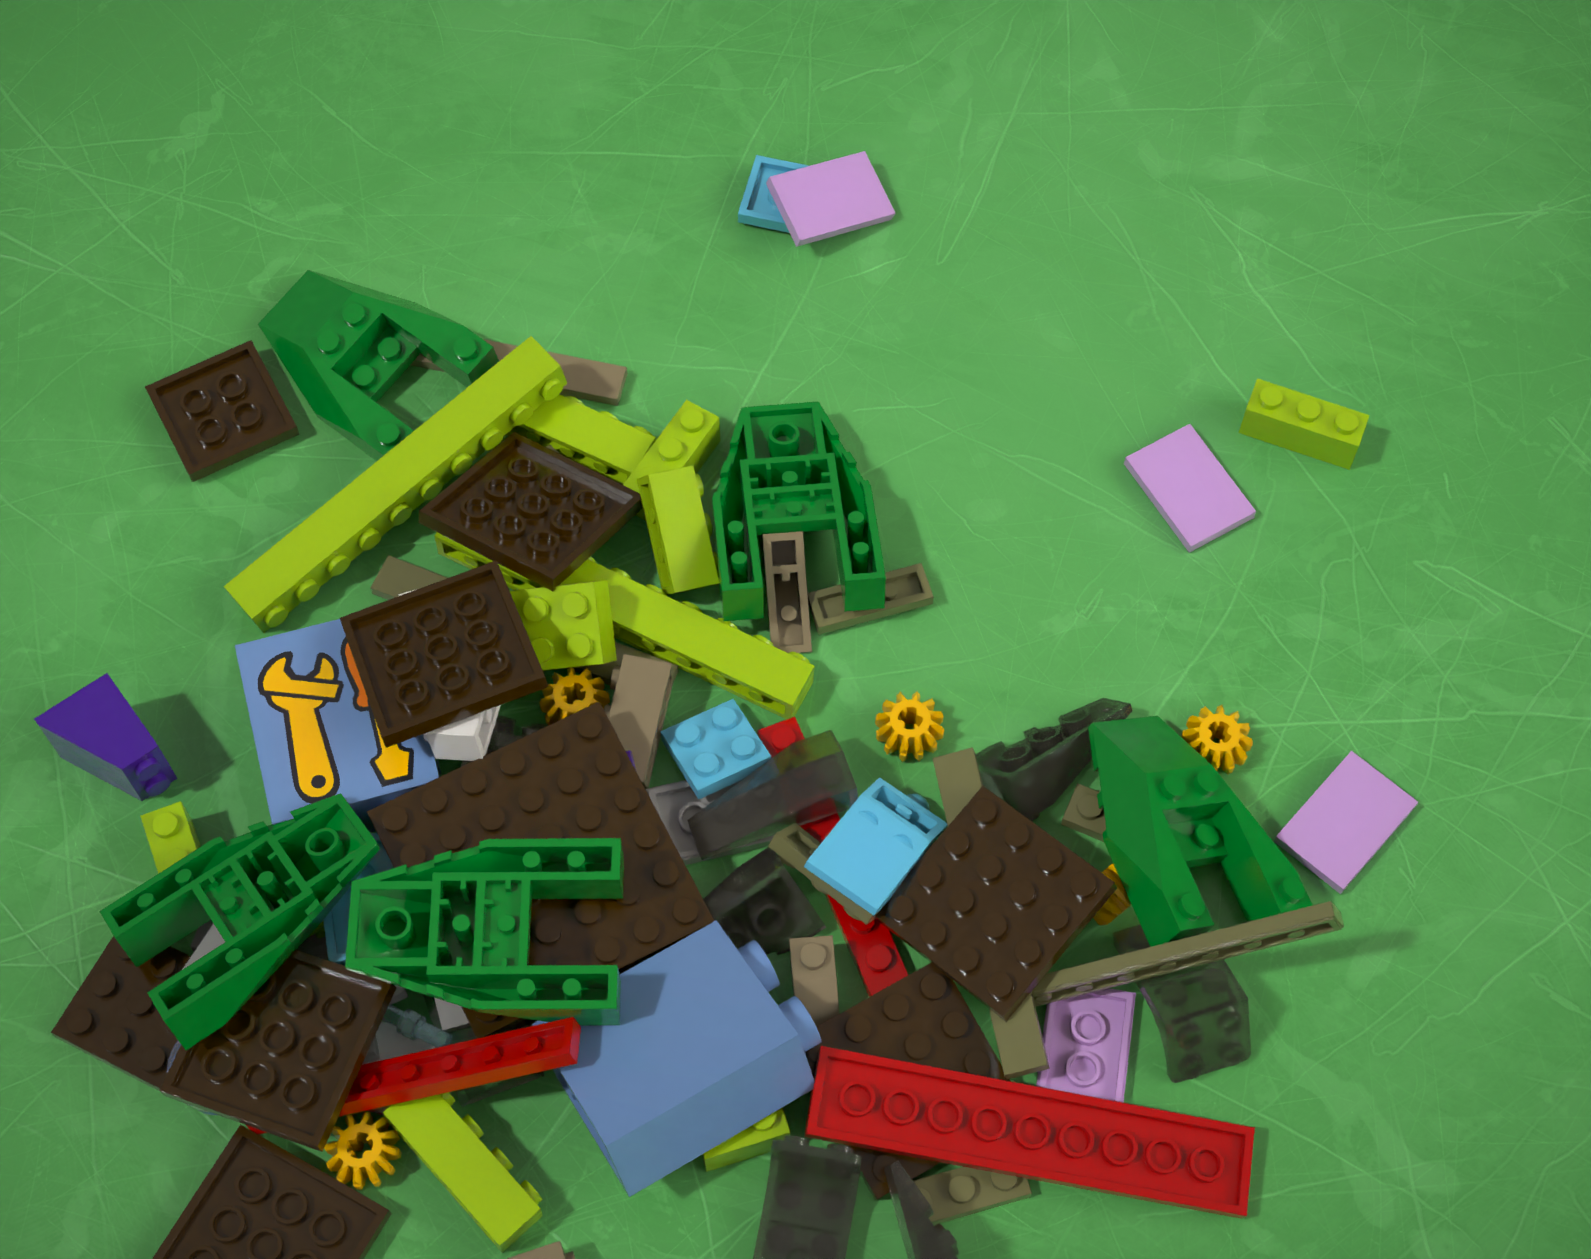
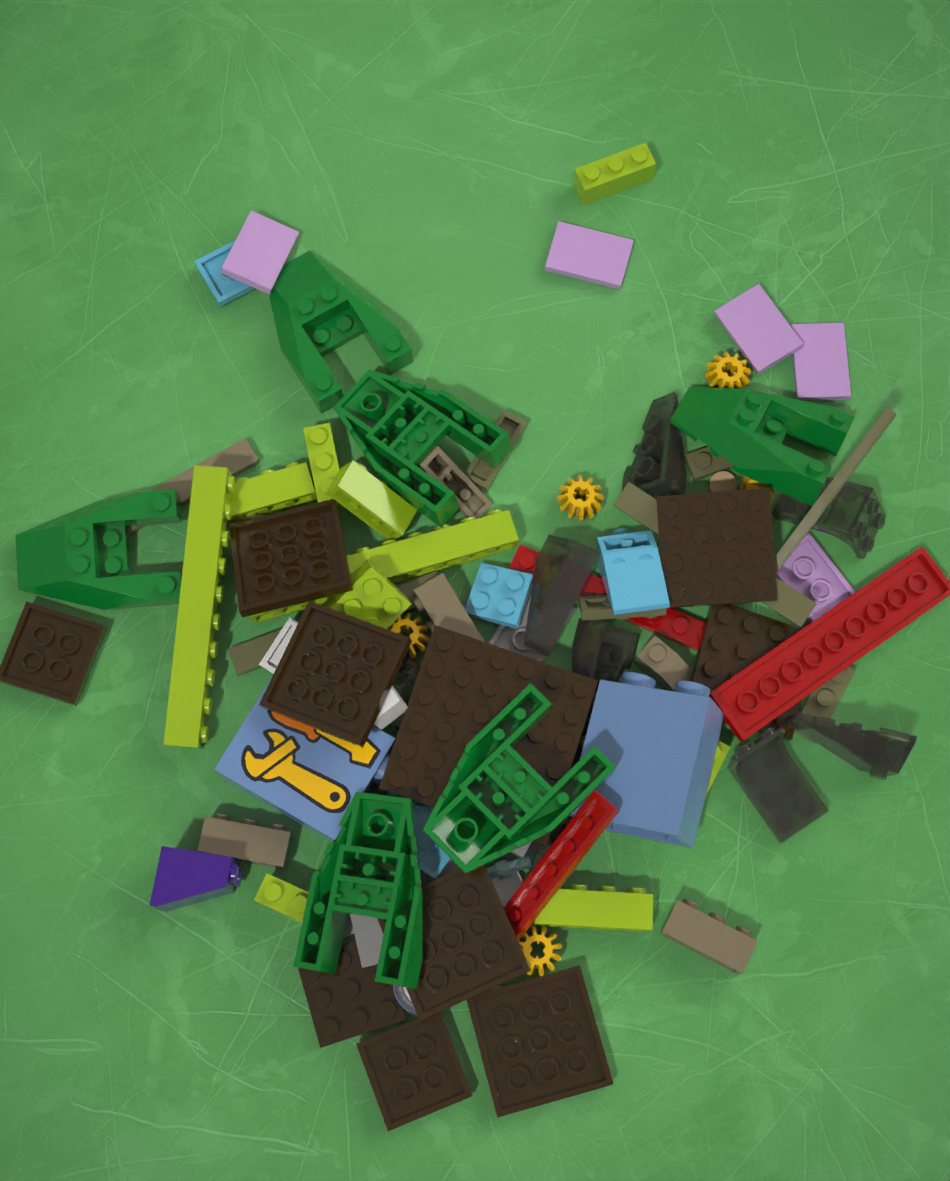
camera: 45 degrees left, 10 degrees up
(113, 1148) = (413, 1070): none -> dark brown plate
(202, 758) = (246, 841): none -> dark tan brick
(835, 309) = (319, 313): none -> green wedge
(1091, 849) = (722, 482): none -> tan tile
(1305, 723) = (758, 329): none -> lavender tile

